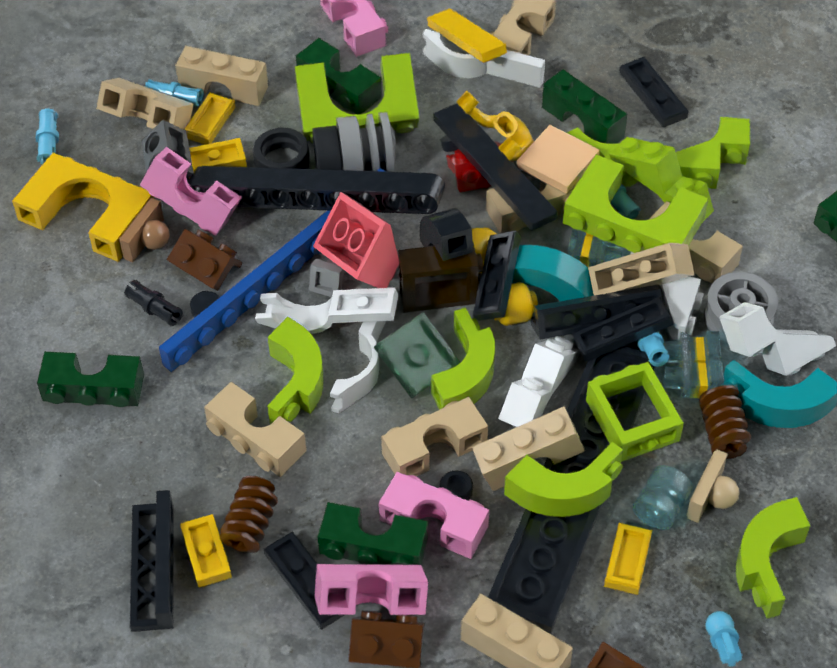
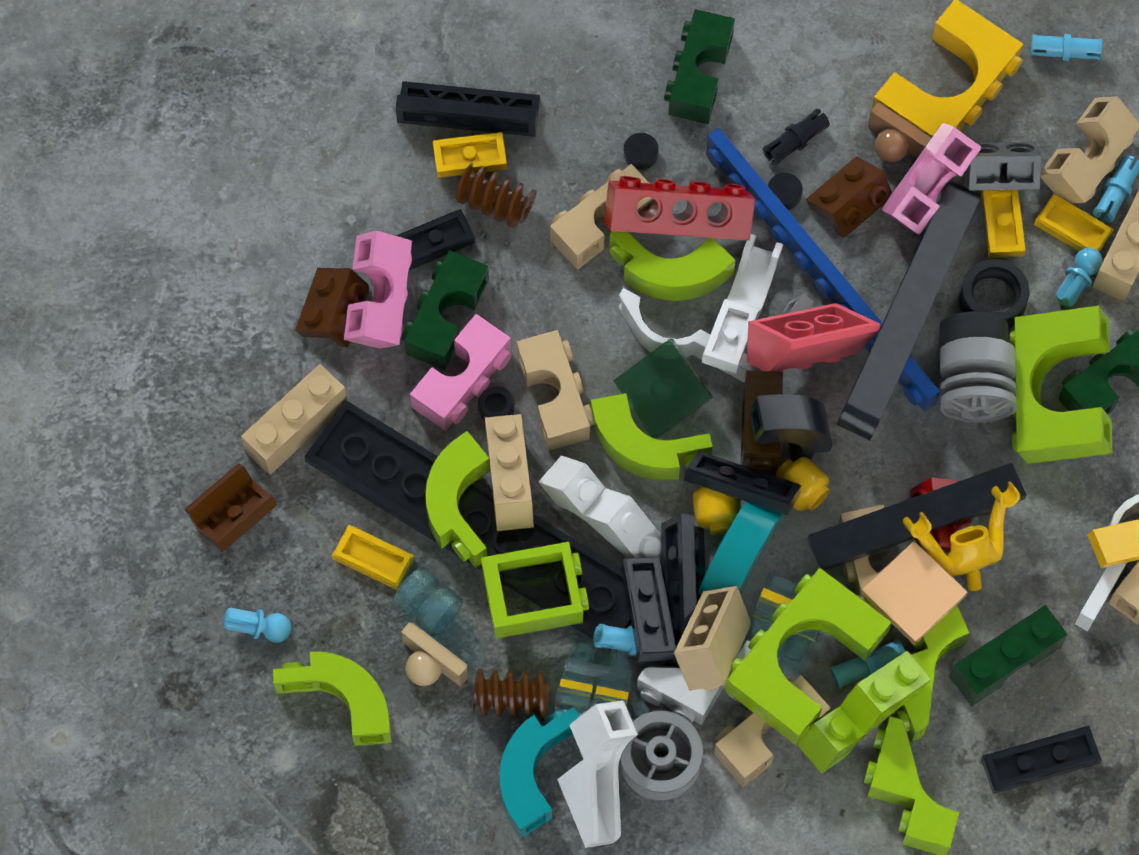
camera: 100 degrees right, 15 degrees up
(180, 416) = (641, 150): none -> black tile
(242, 103) = (1087, 264): none -> medium azure axle
(249, 358) = (731, 222): none -> red brick

